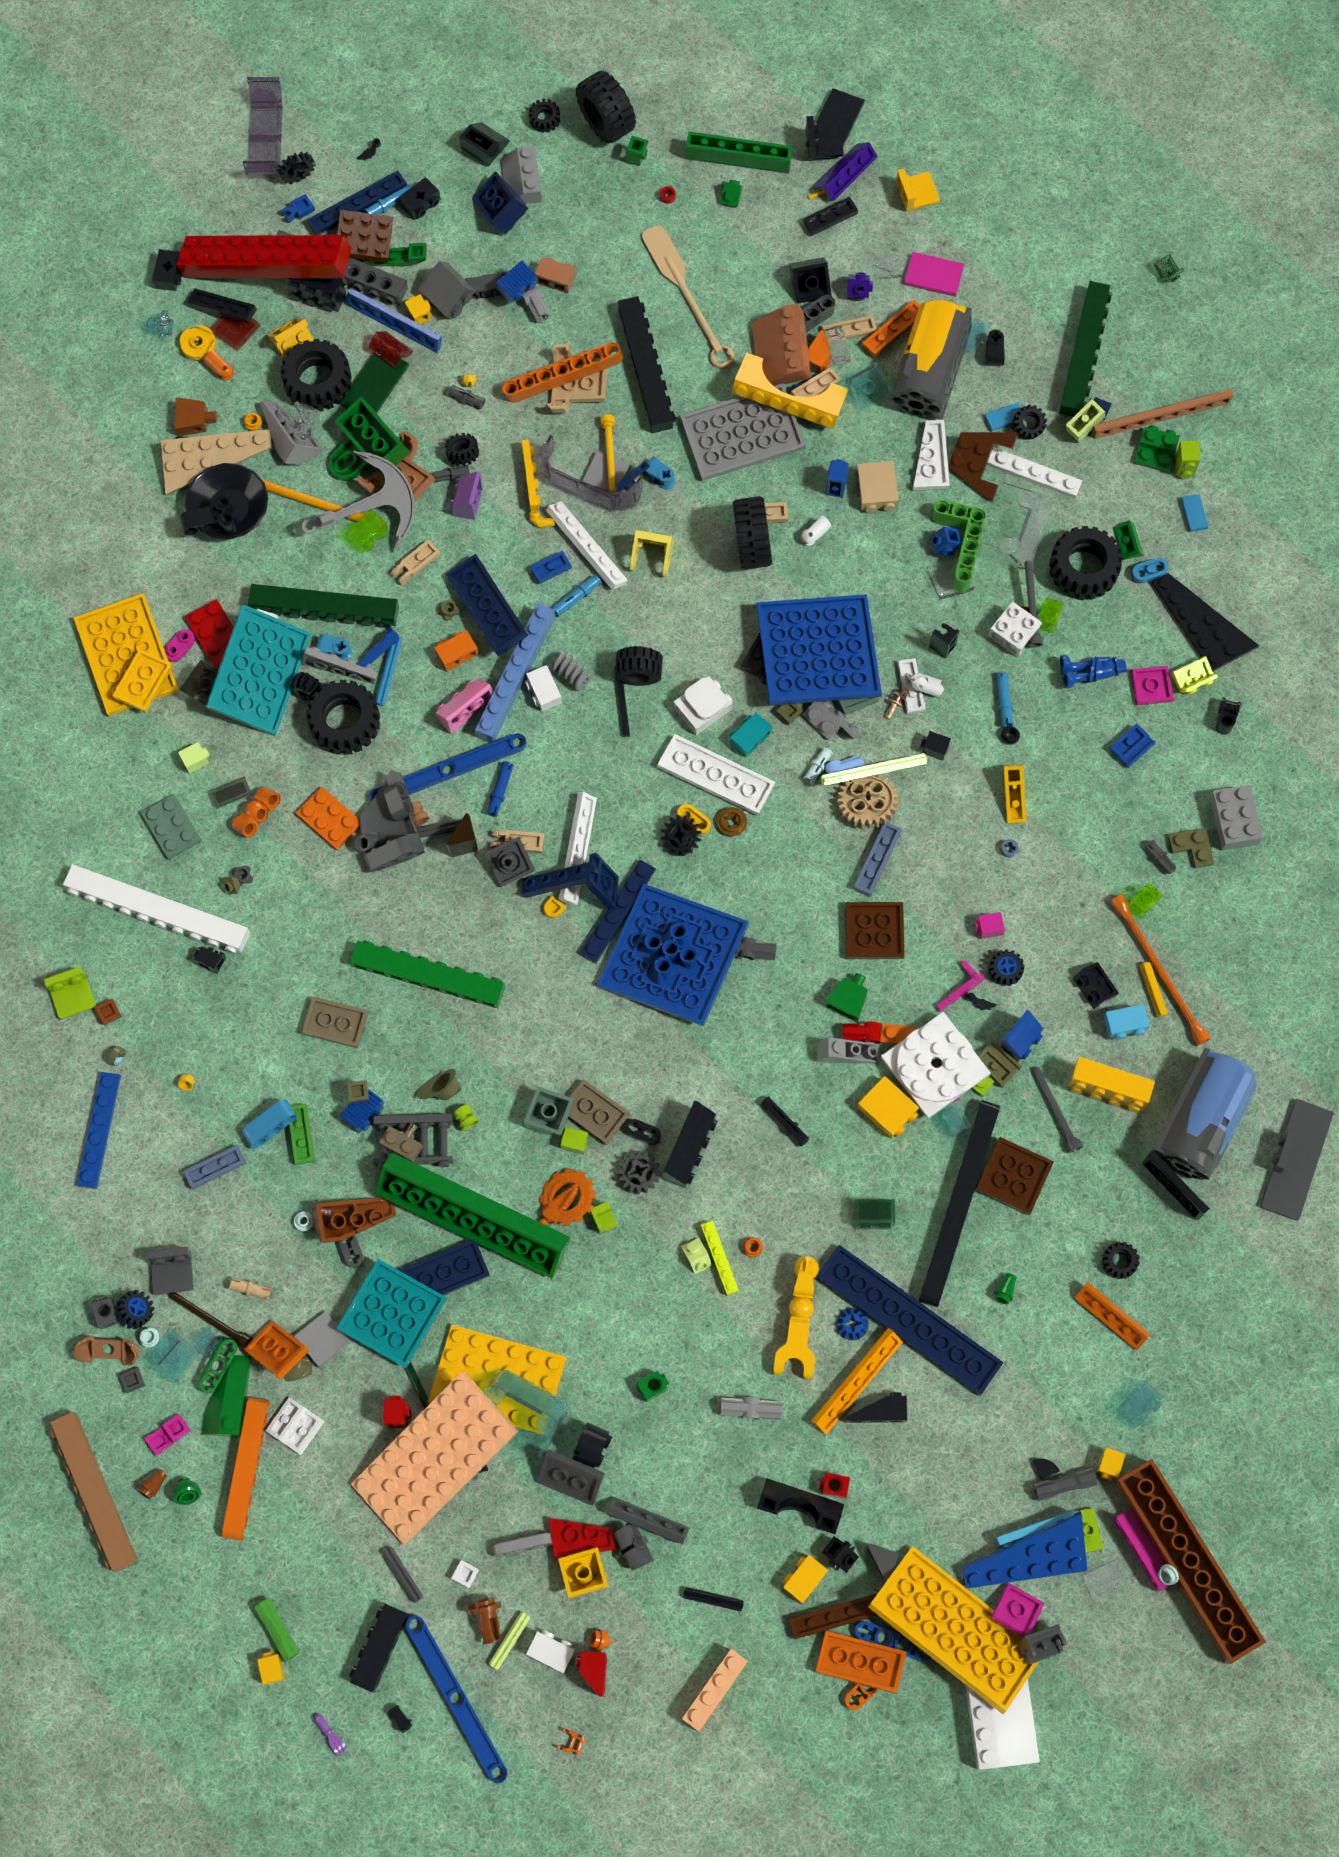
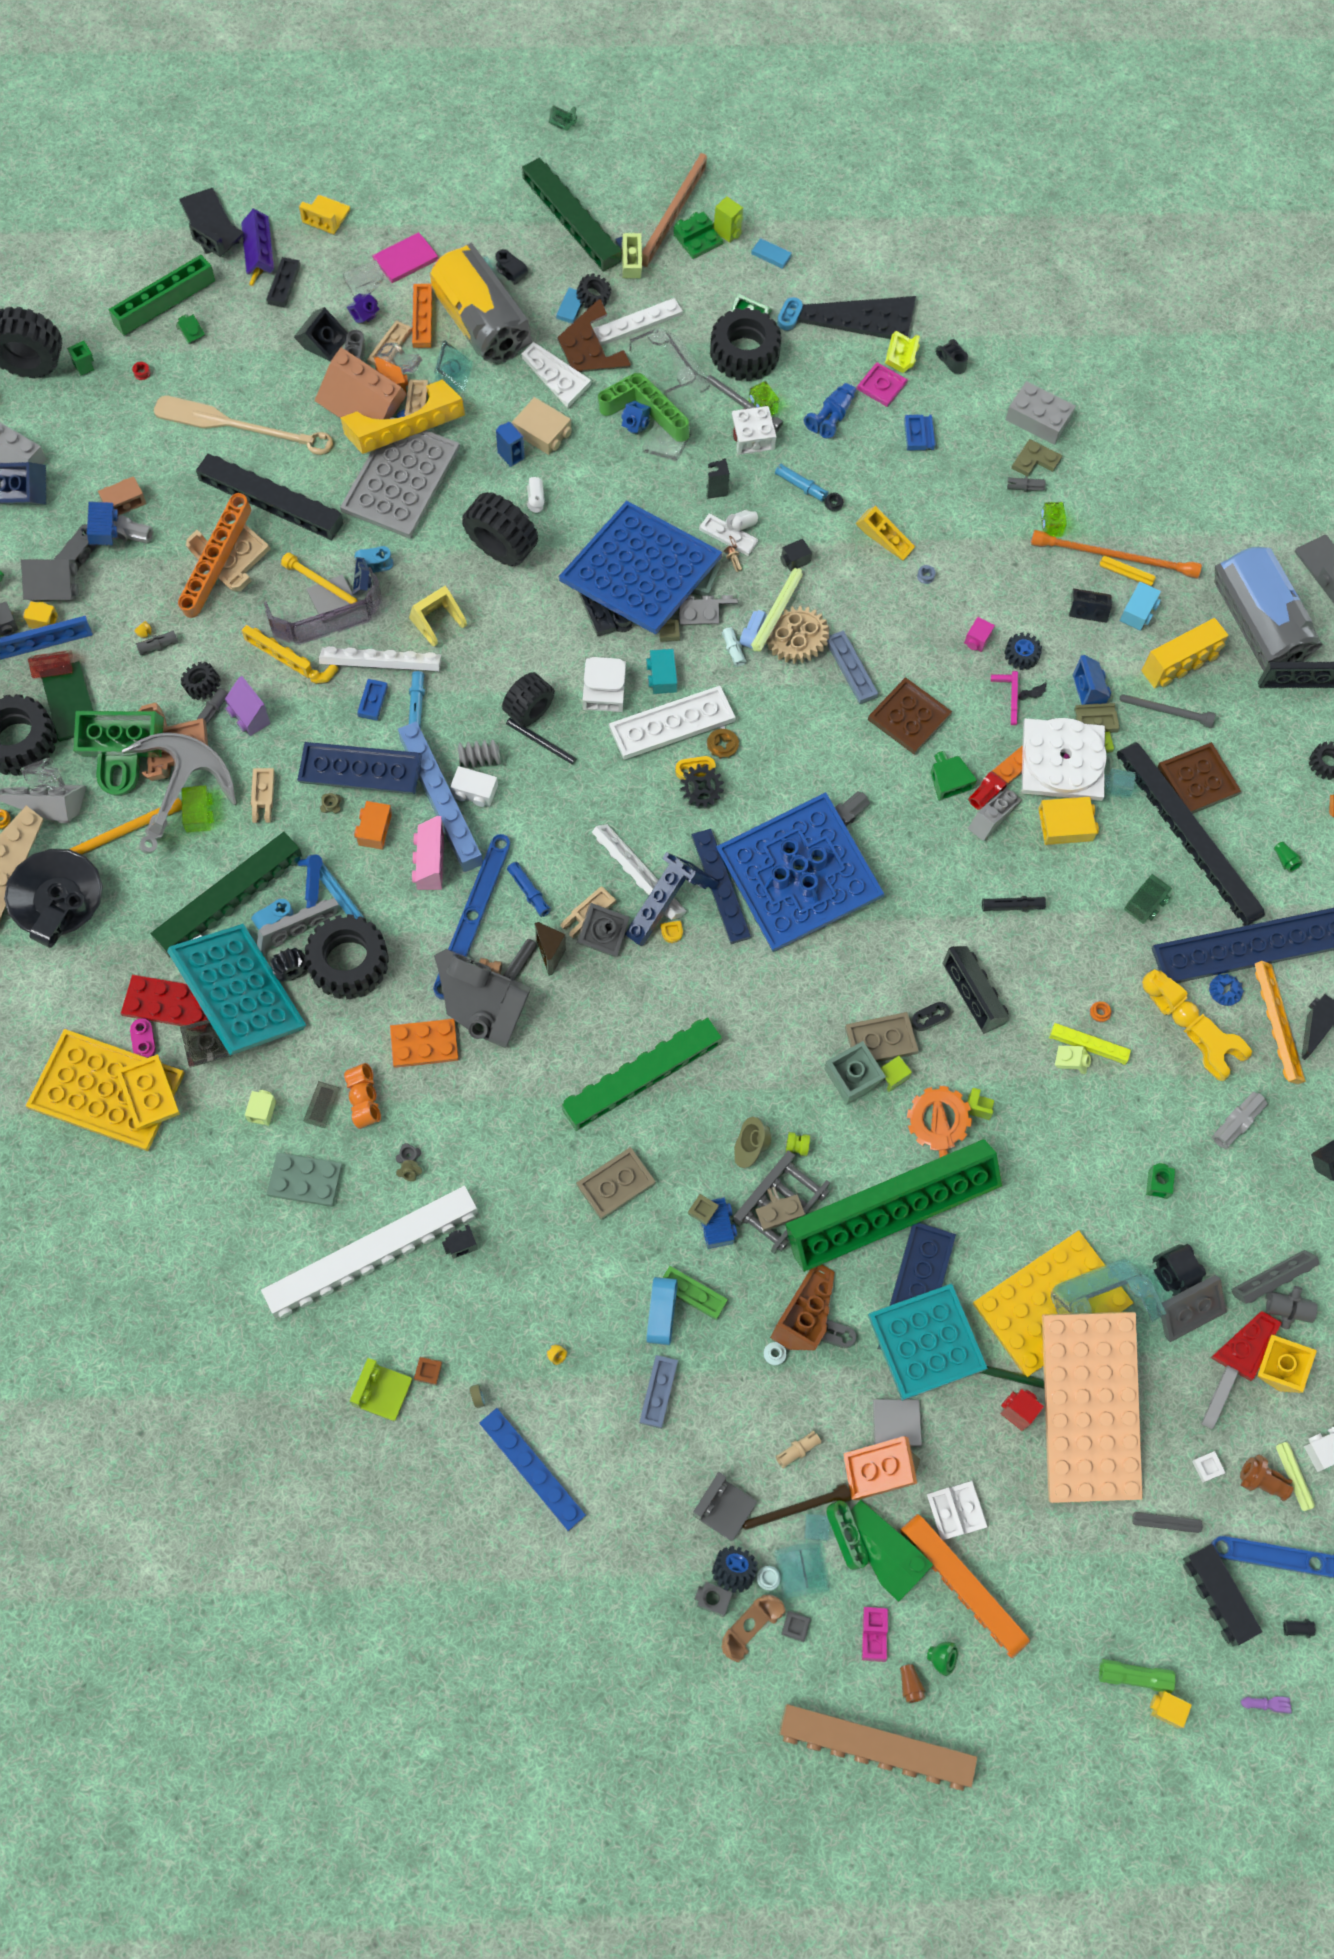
camera: 55 degrees left, 5 degrees down
(630, 1175) = (973, 1048): dark grey gear -> none

